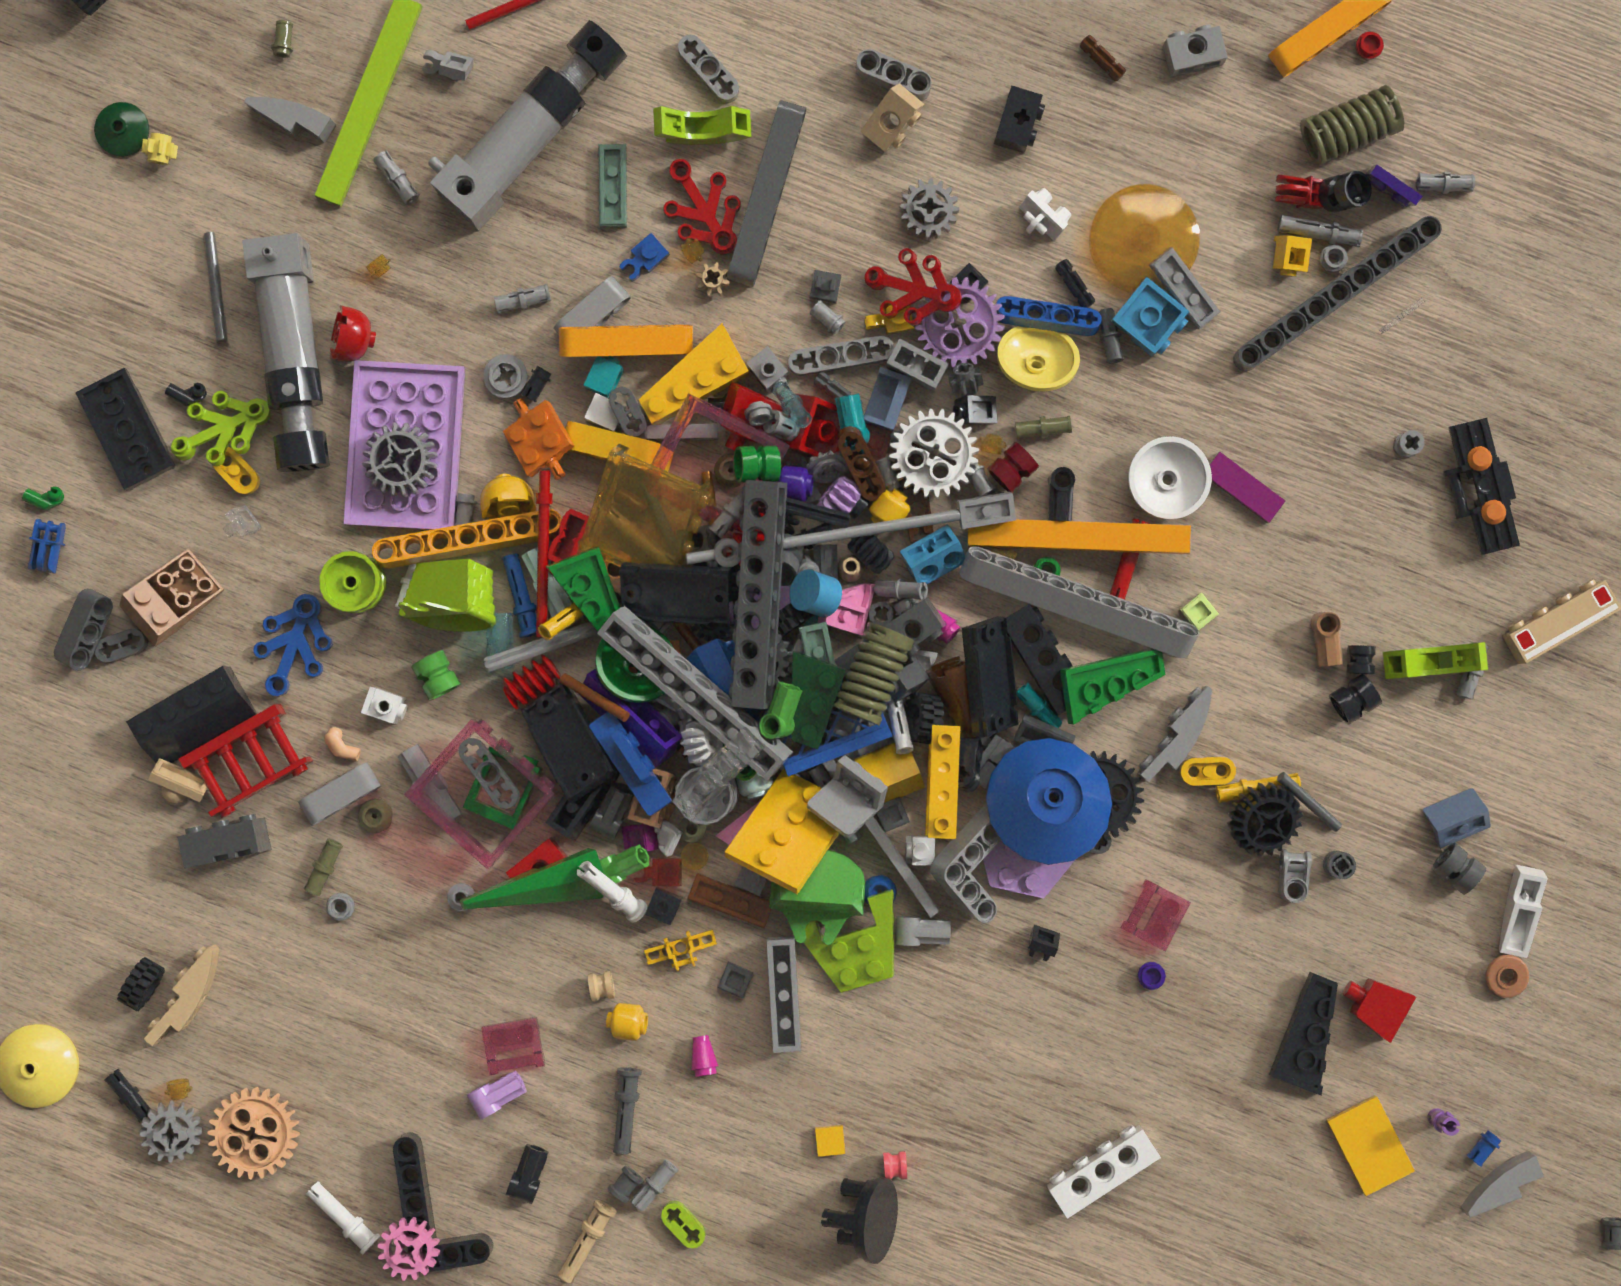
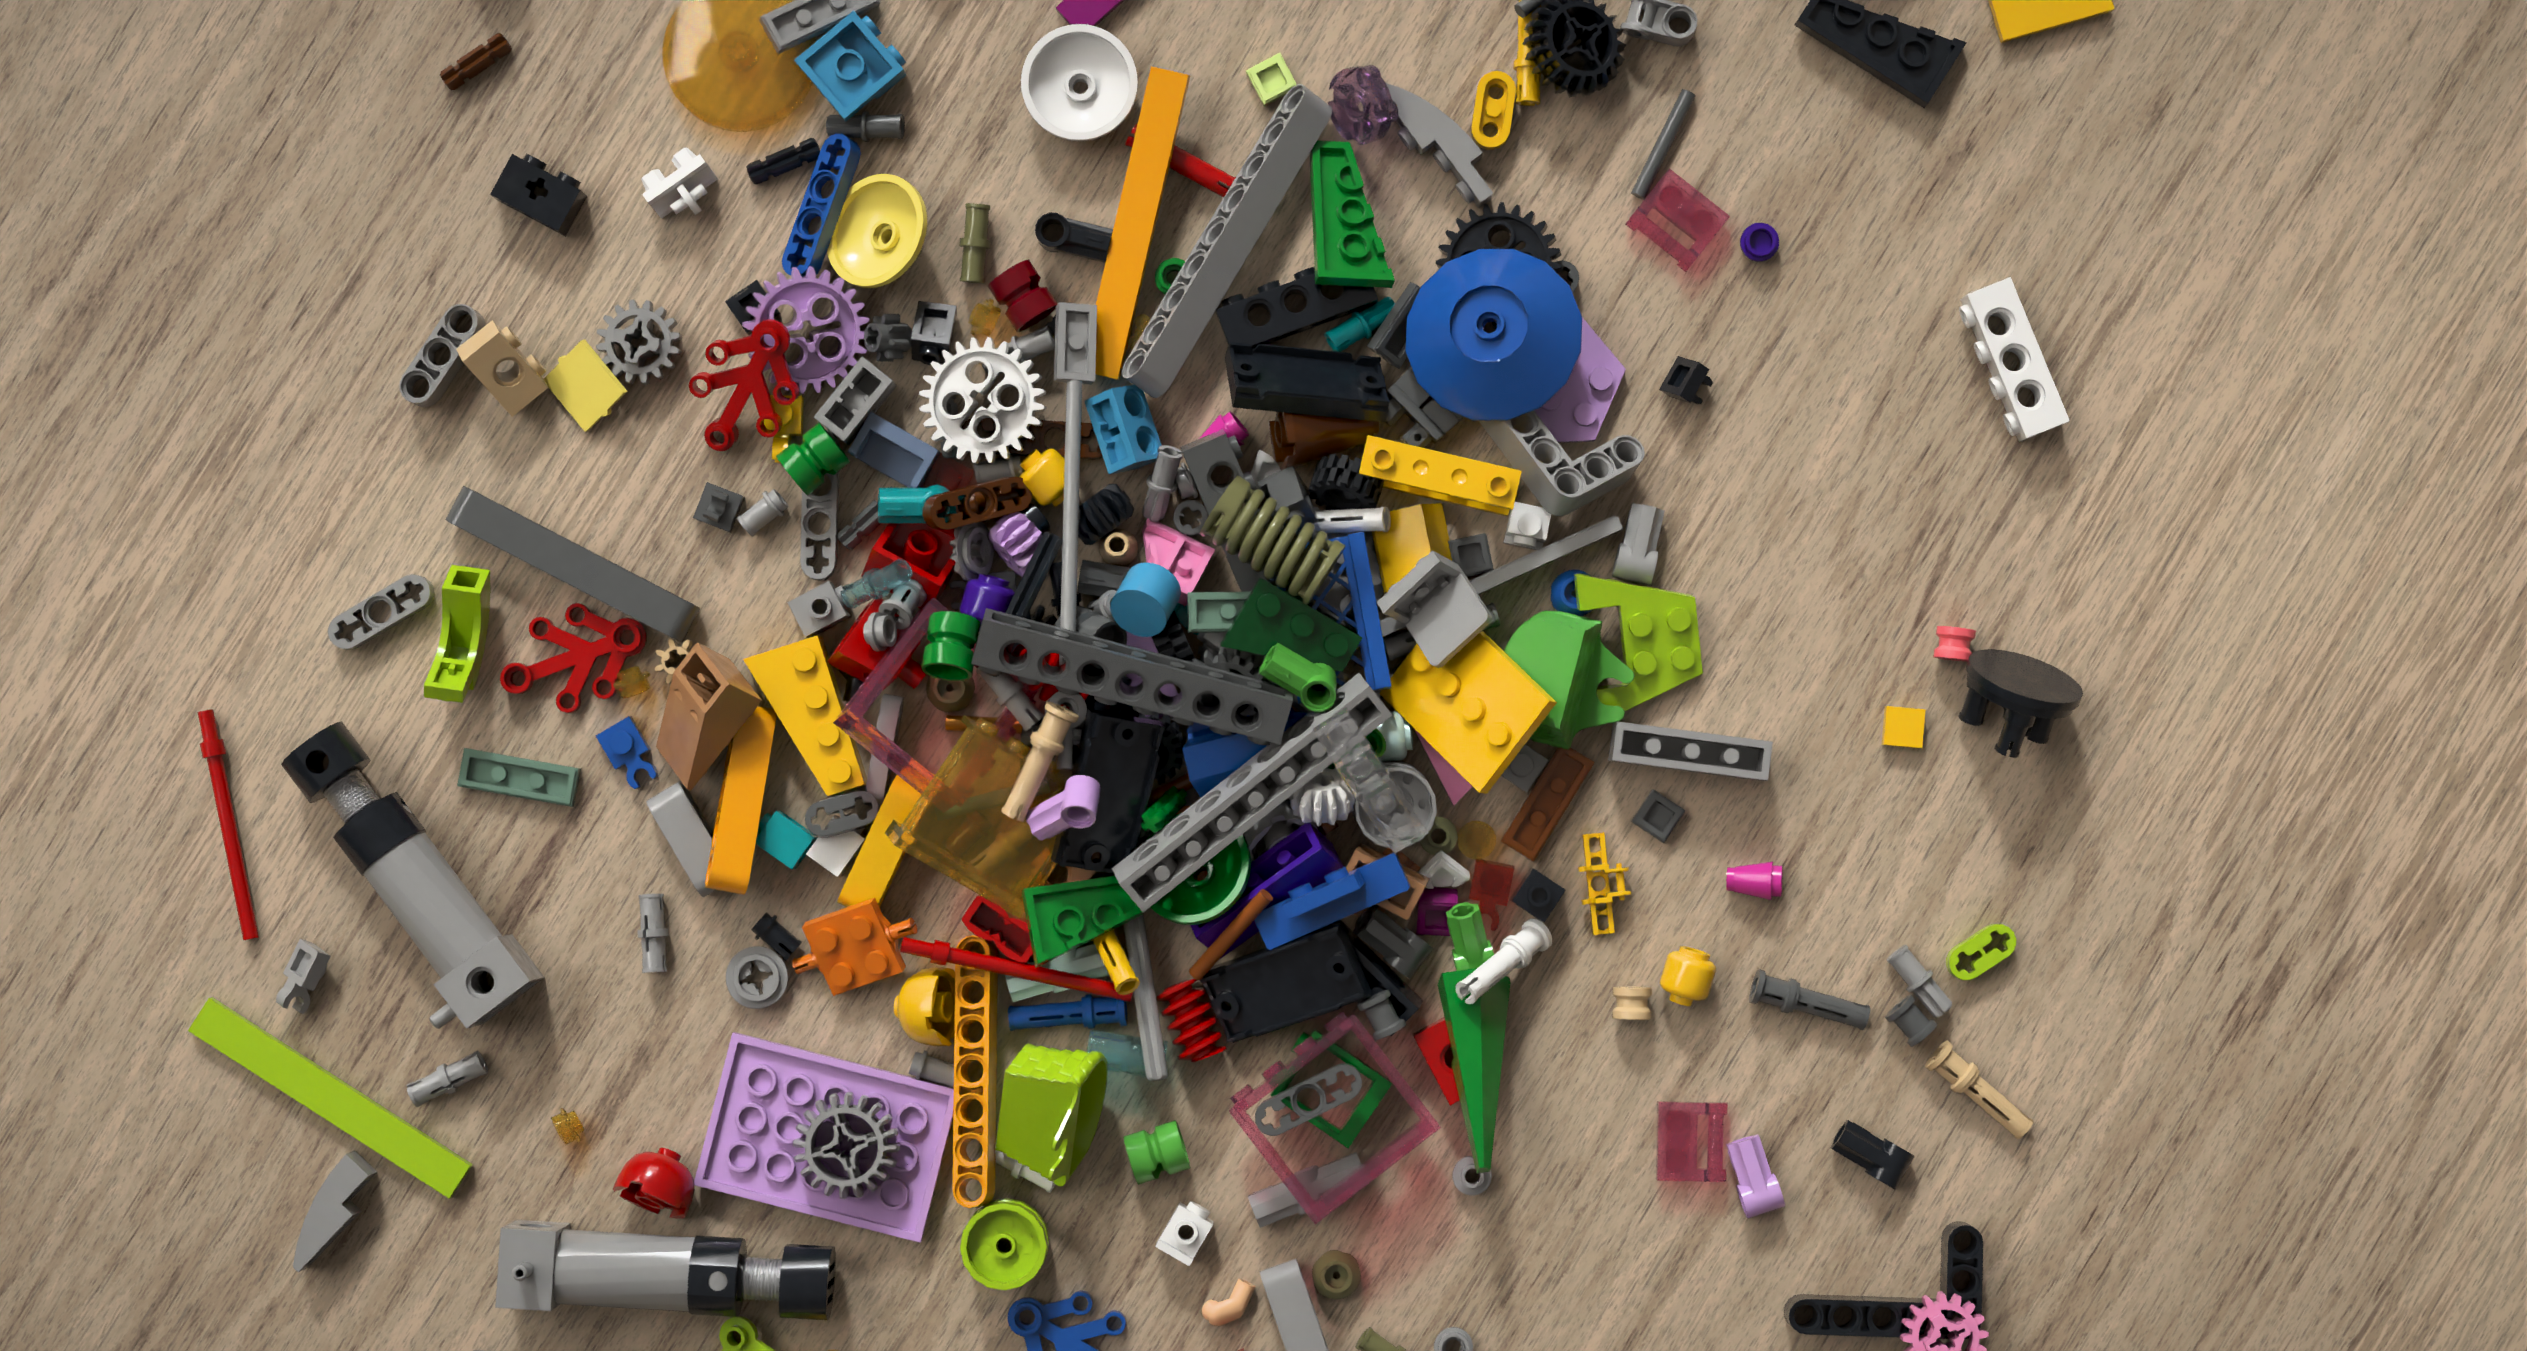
camera: 80 degrees left, 0 degrees up
(282, 43) = (219, 1202): olive pin -> none
(557, 813) = (1381, 1014): none -> dark grey bush
(658, 568) = (1070, 808): none -> lavender piece
(673, 634) = (1164, 809): none -> green axle
(680, 303) = (703, 712): none -> medium nougat slope
(700, 543) = (1046, 744): none -> tan pin
(870, 344) = (813, 459): none -> green wheel
(891, 177) = (585, 385): none -> light yellow piece
(969, 762) = (1421, 432): black piece -> none
(1205, 673) = (1364, 86): none -> clear purple plate
(1207, 895) = (1663, 144): none -> dark grey bar

